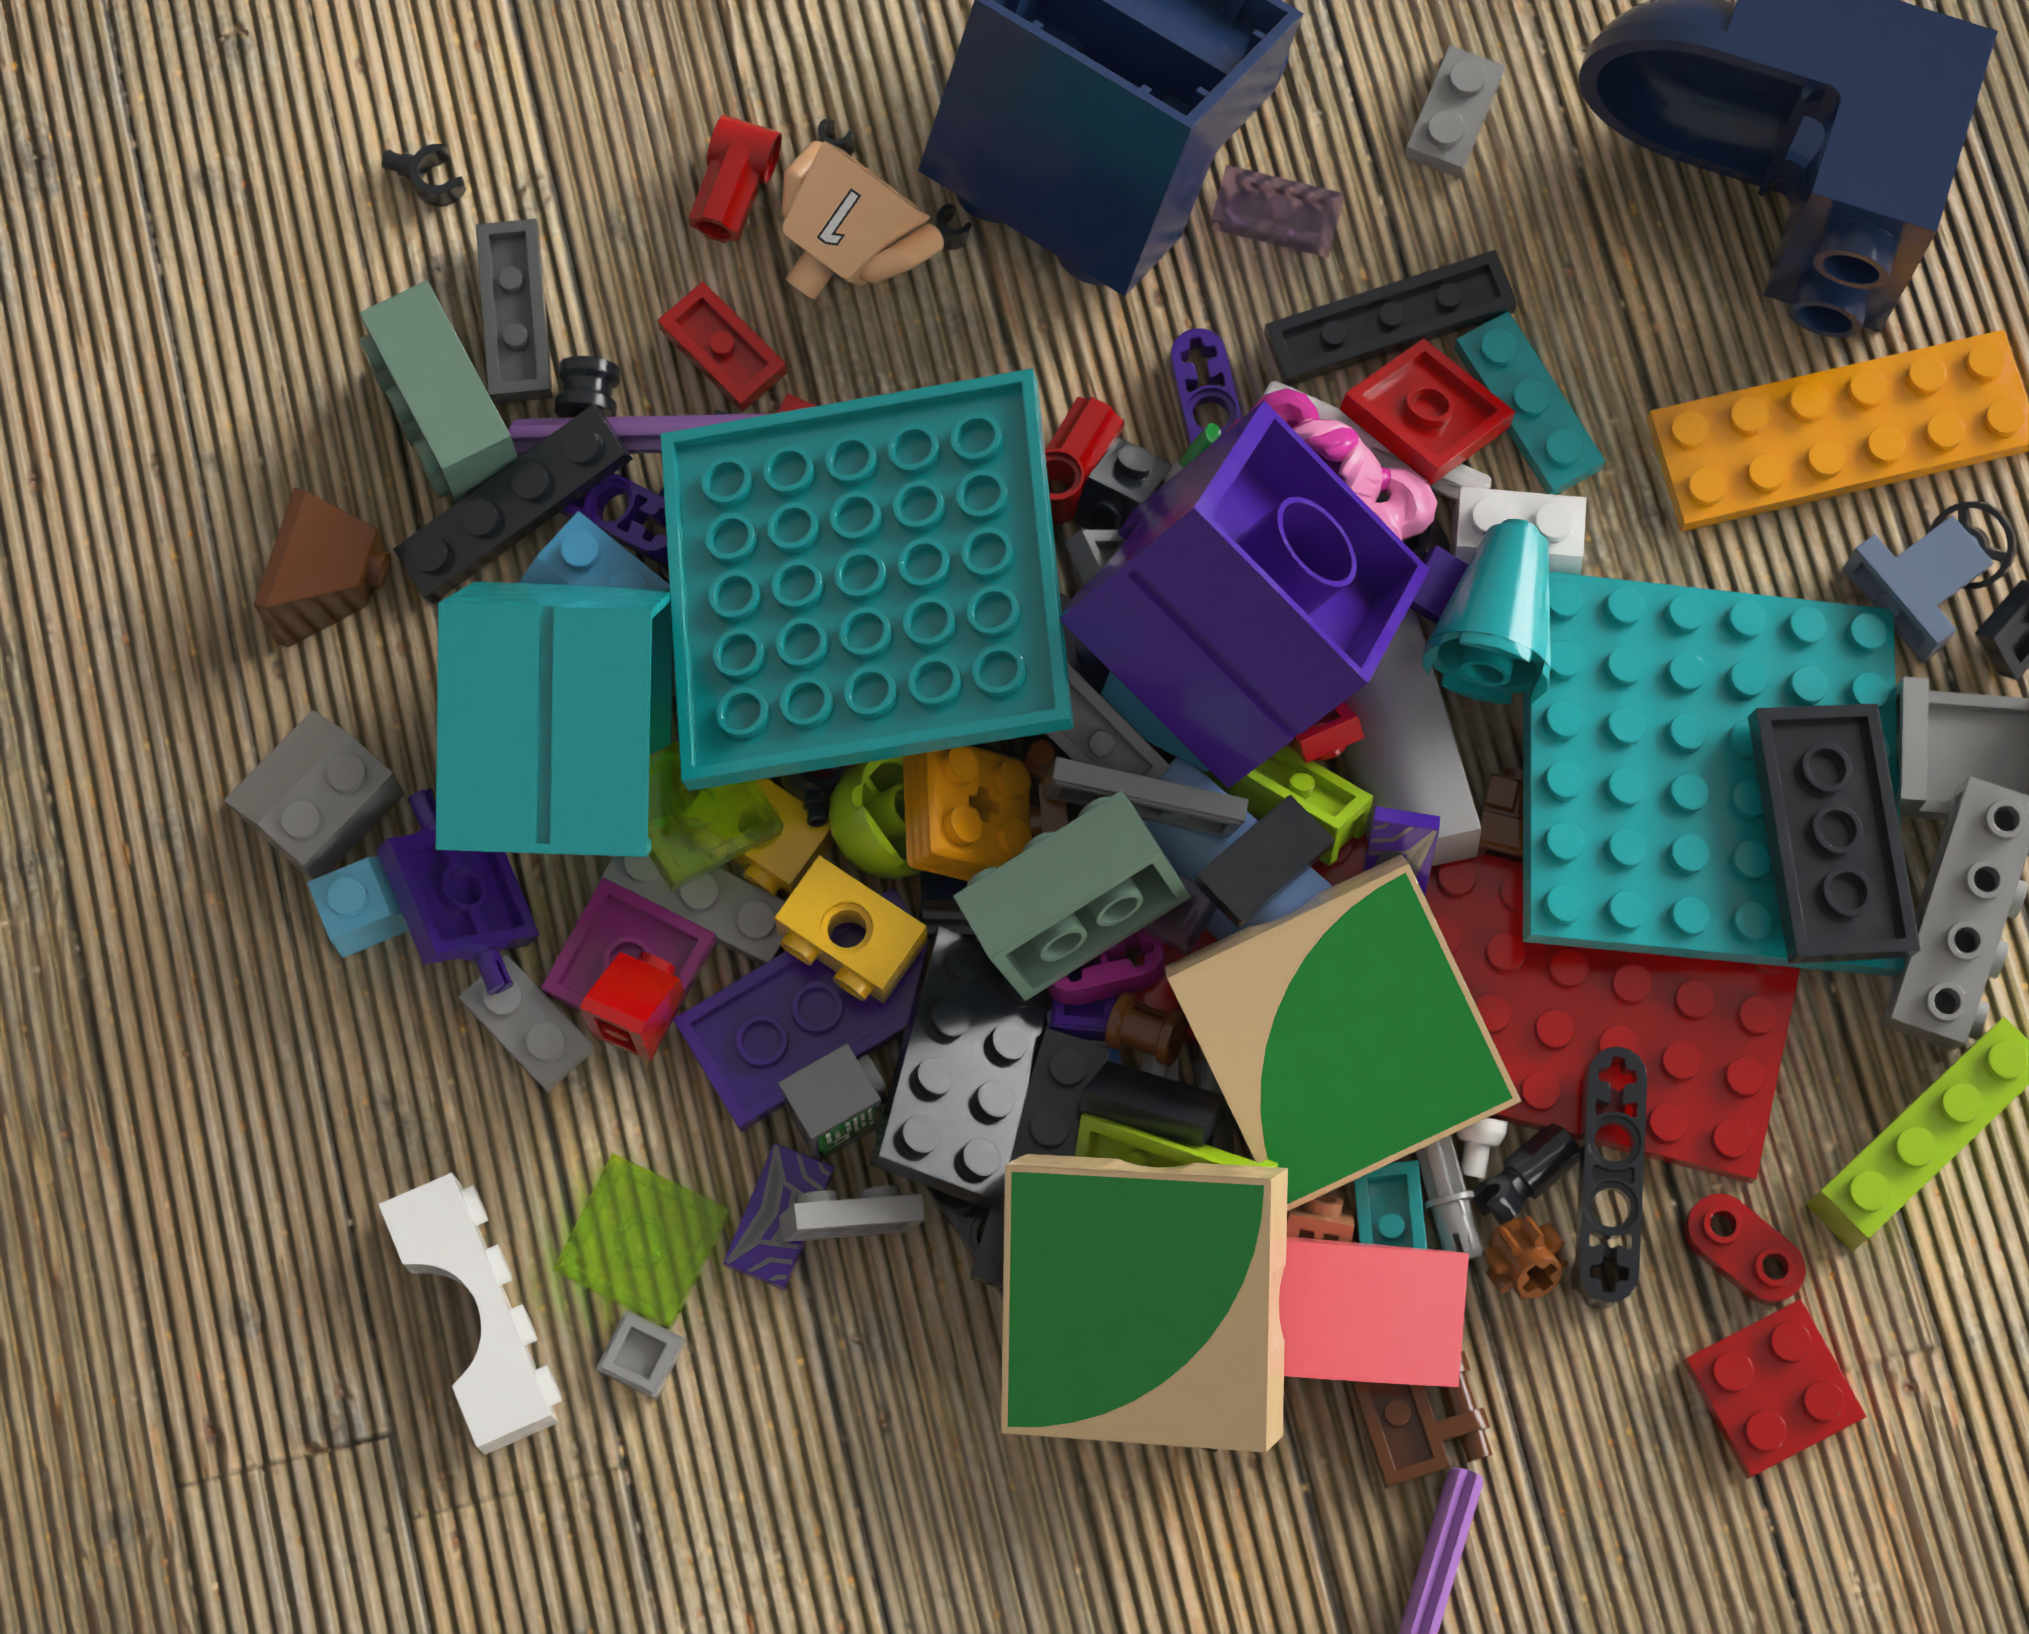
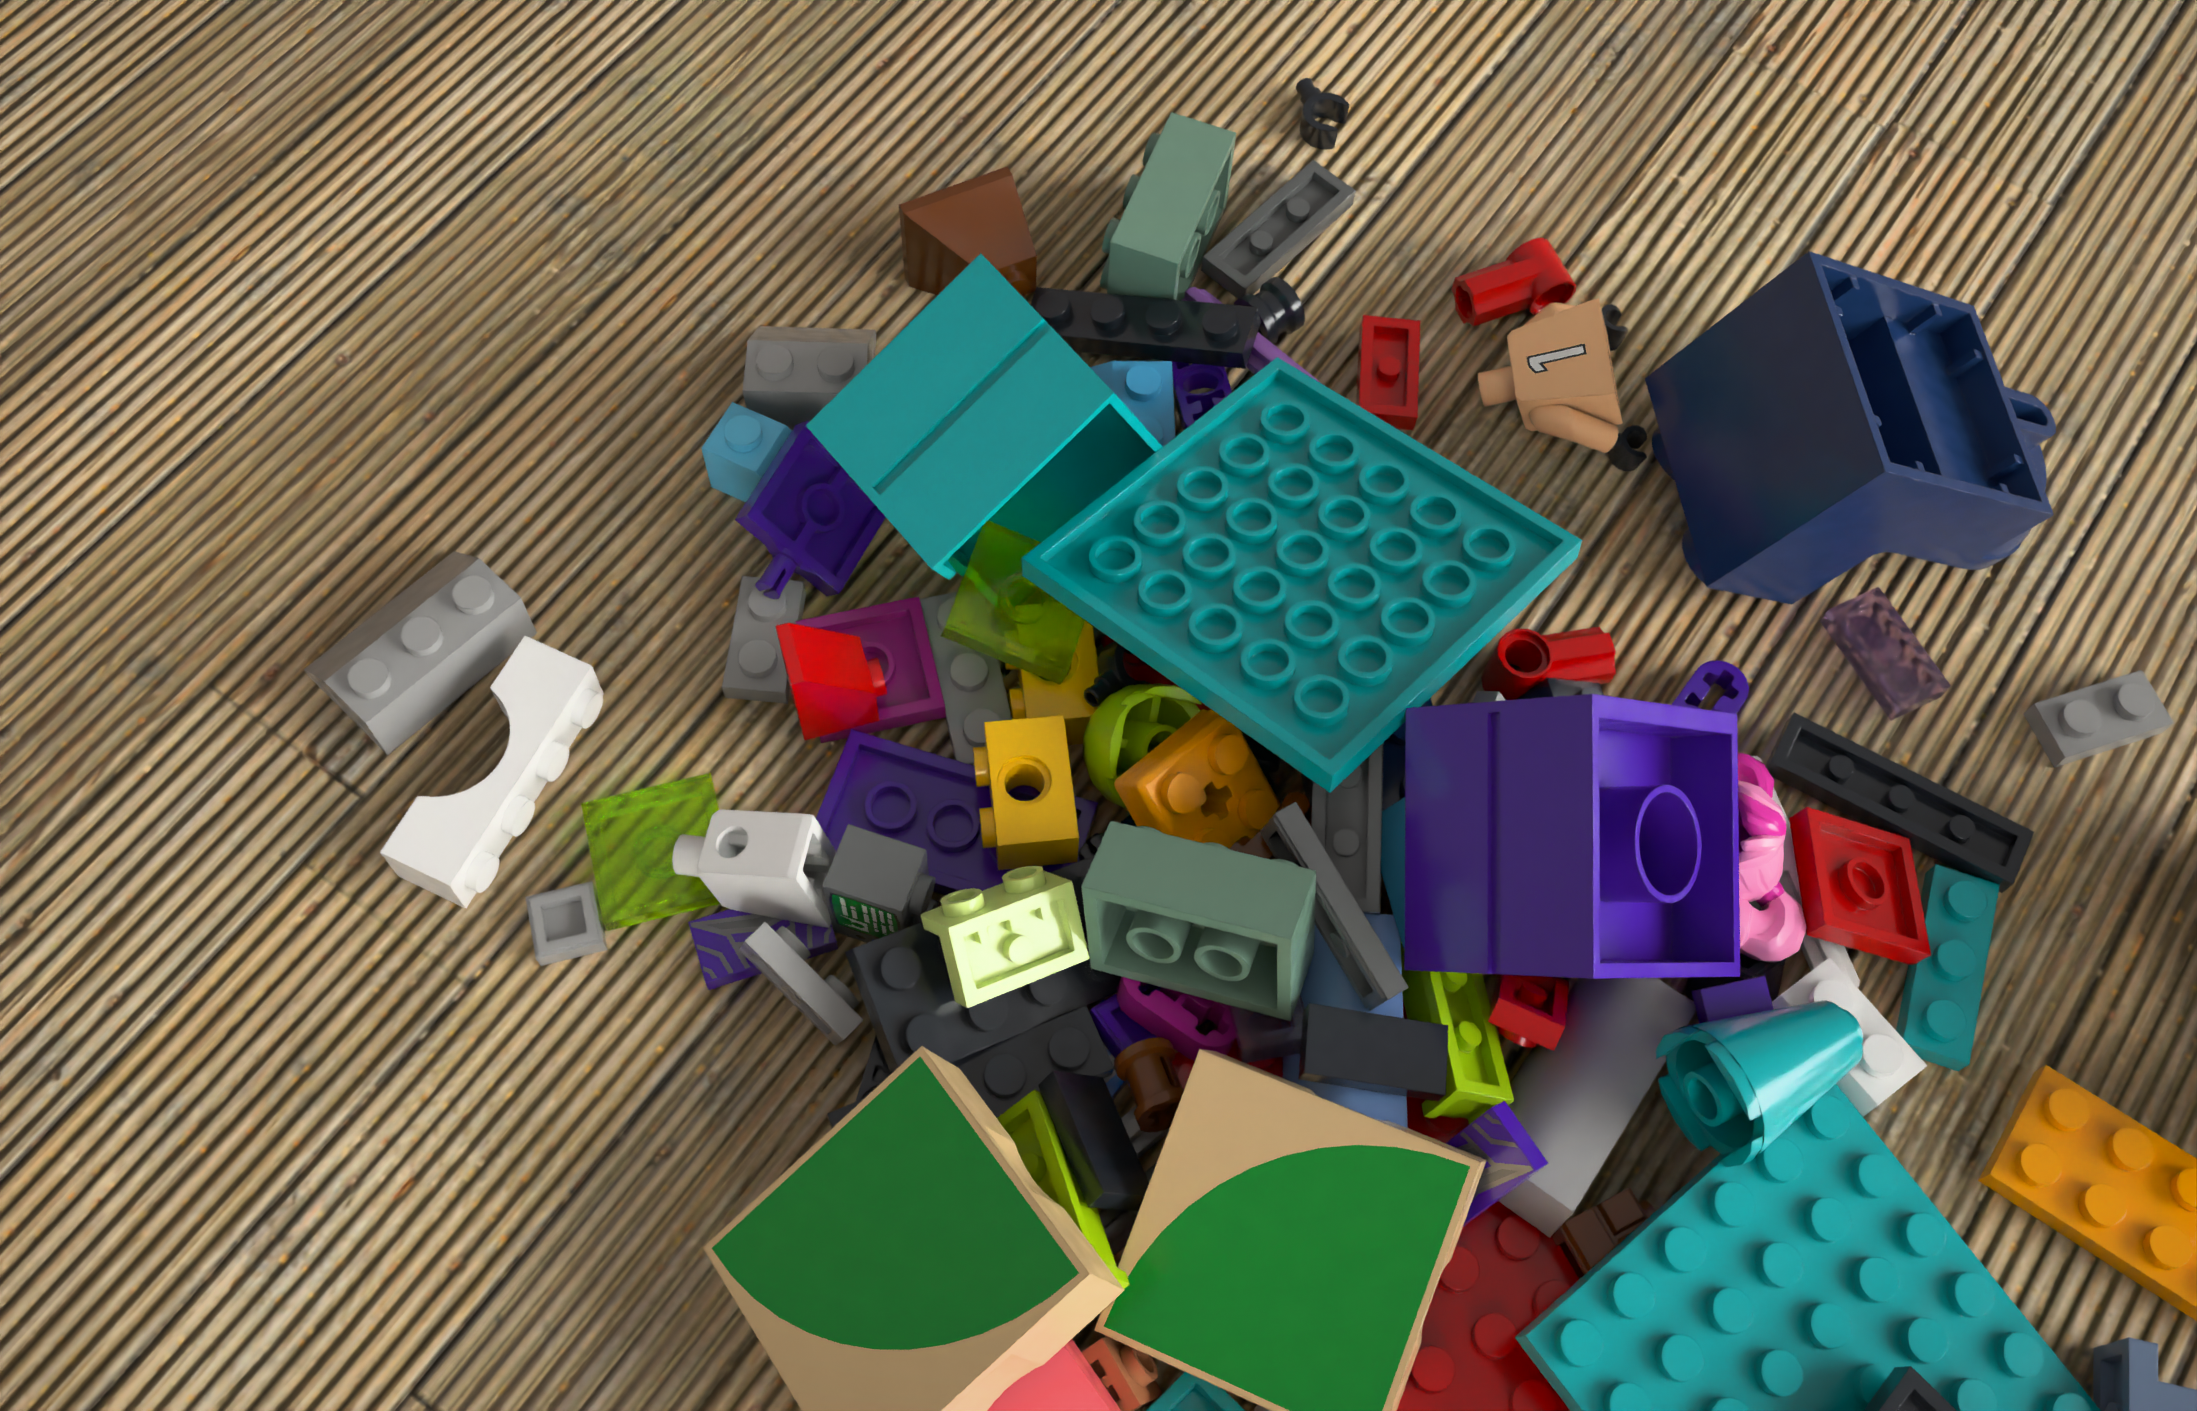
camera: 45 degrees right, 10 degrees down
(297, 1293) = (423, 649): none -> light grey slope
(764, 1163) = (762, 863): none -> white torso
(958, 1037) = (1008, 933): none -> yellowish green bracket

